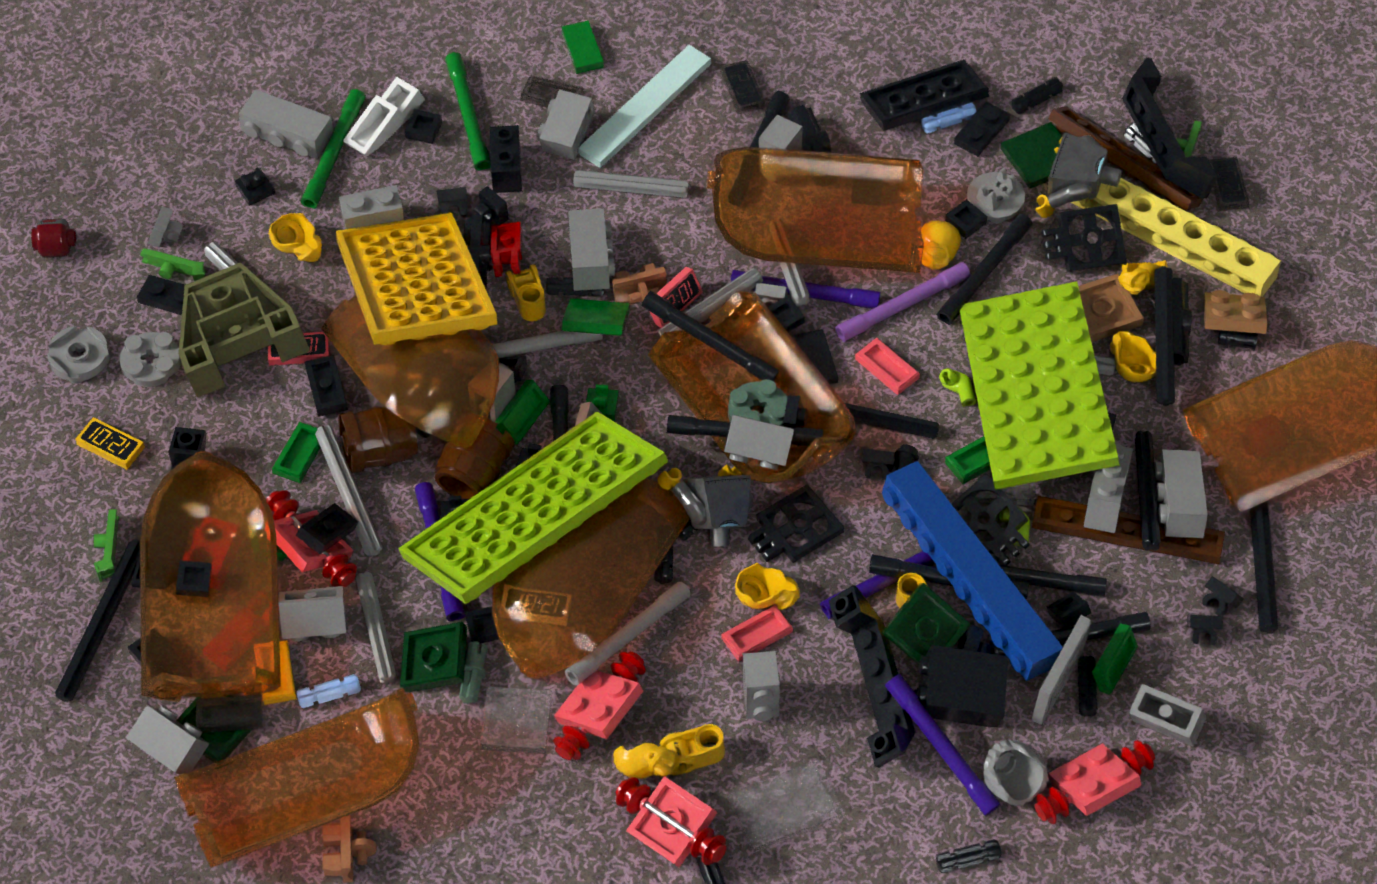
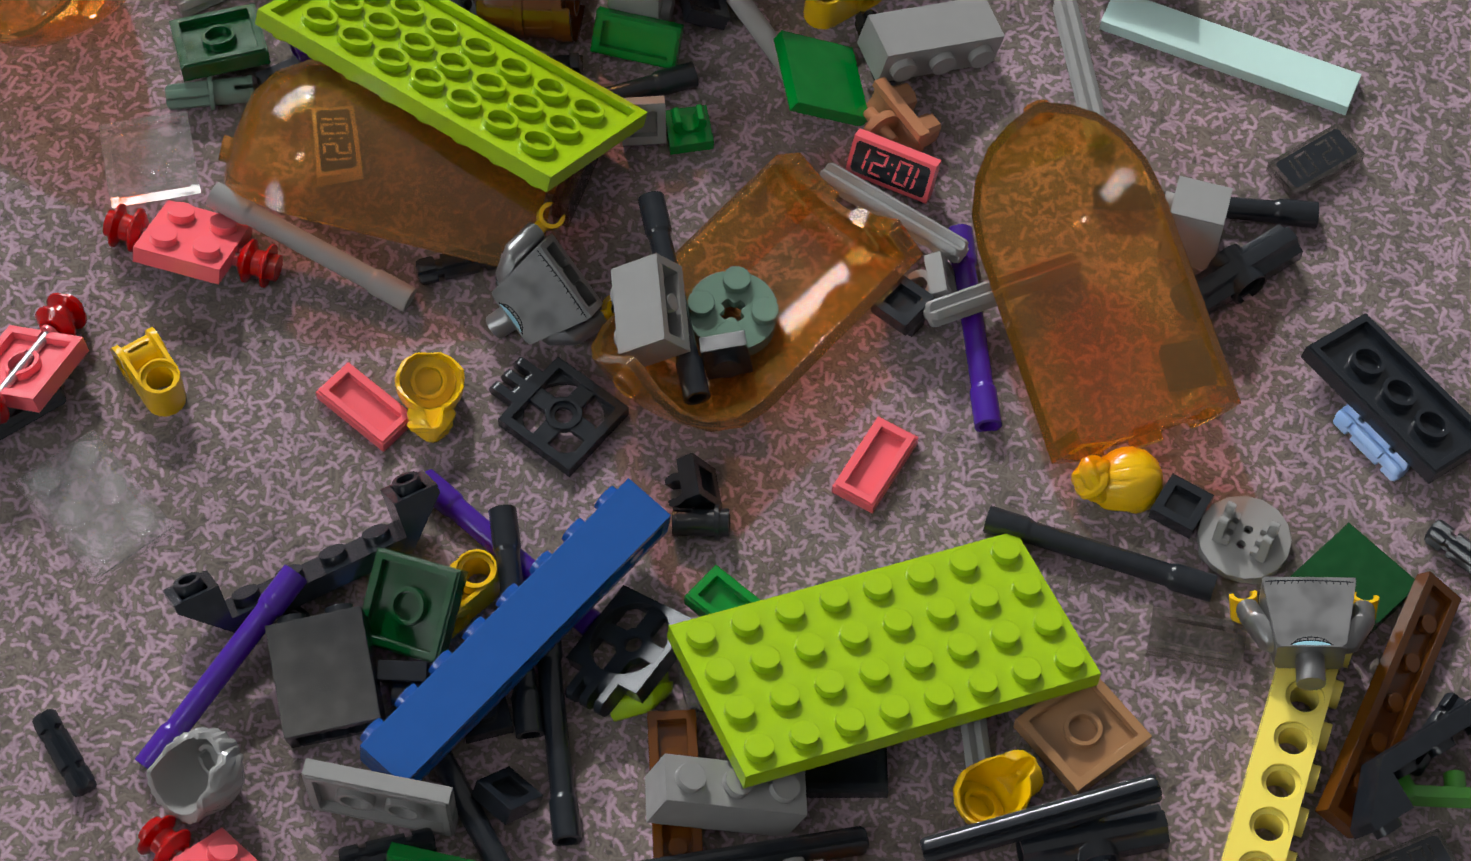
camera: 70 degrees right, 5 degrees up
(644, 761) = (102, 305): yellow hair -> none
(667, 311) = (800, 282): black piece -> none
(761, 685) = (254, 418): light grey brick -> none
(817, 350) = (856, 369): black tile -> none
(861, 322) = (1055, 502): medium lavender piece -> none
(894, 421) = (776, 481): black axle -> none
(960, 384) = (877, 554): lime arm -> none
(982, 129) = (1370, 493): black plate -> none
(1064, 241) = (1176, 645): black piece -> none
(1139, 276) = (1146, 754): yellow hair -> none

